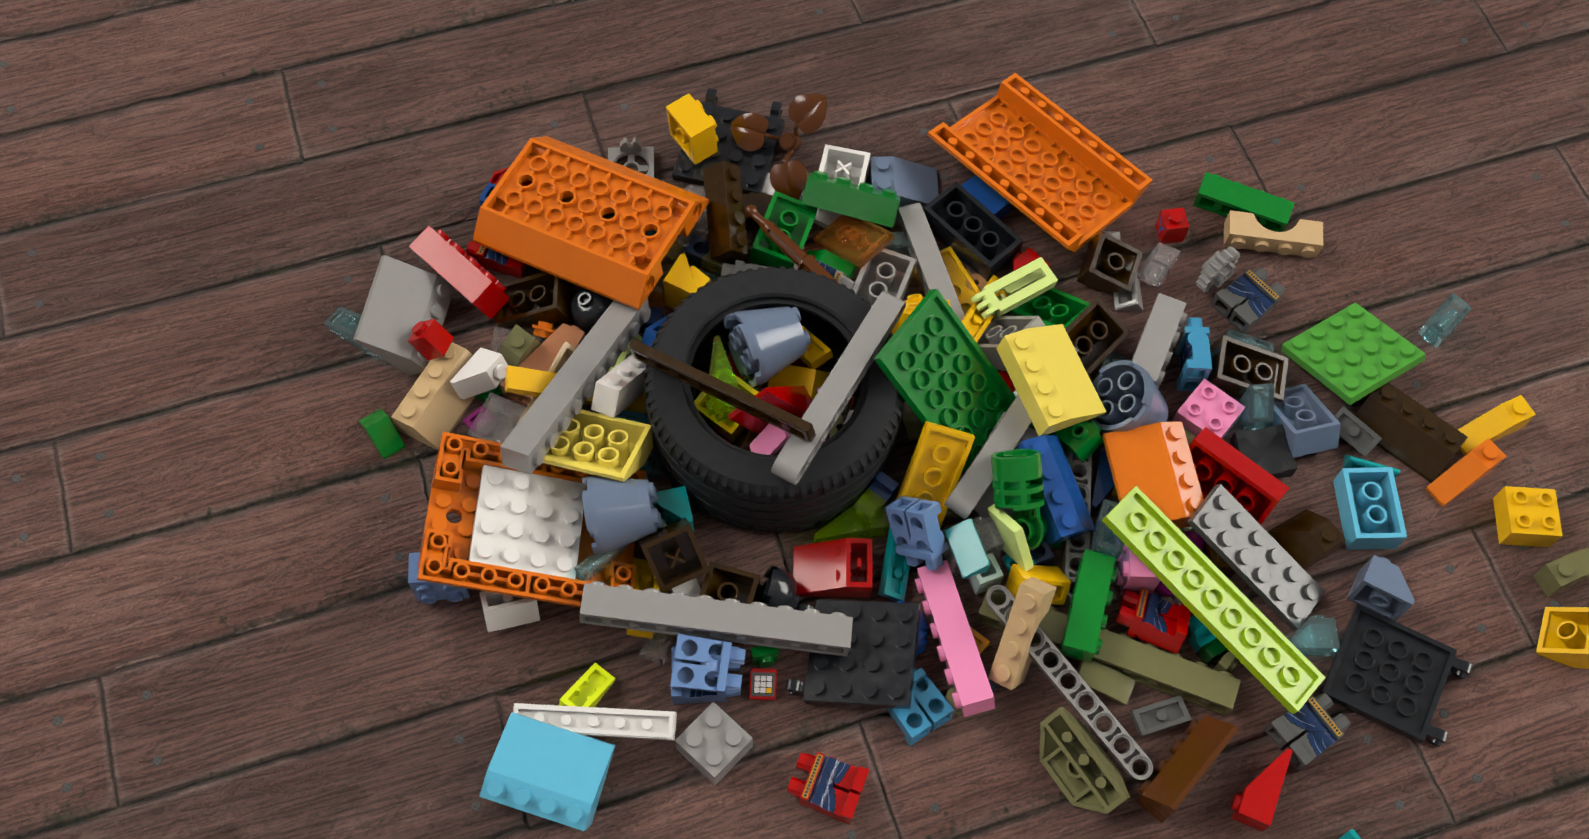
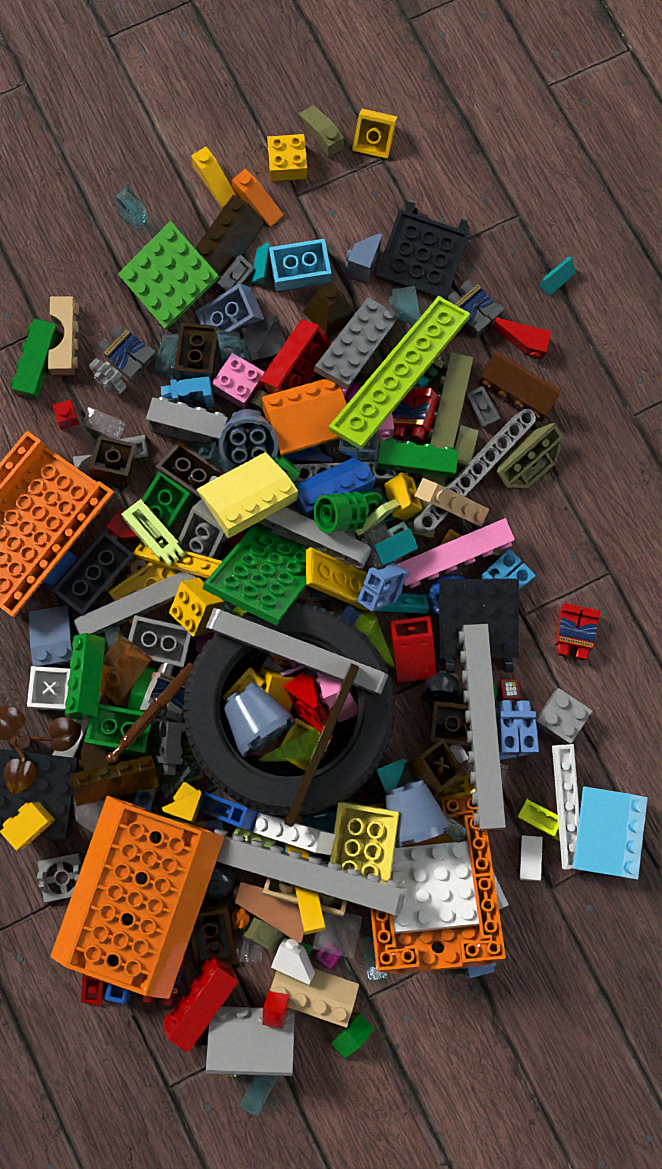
camera: 100 degrees left, 15 degrees up
(538, 669) = (531, 858): none -> white slope

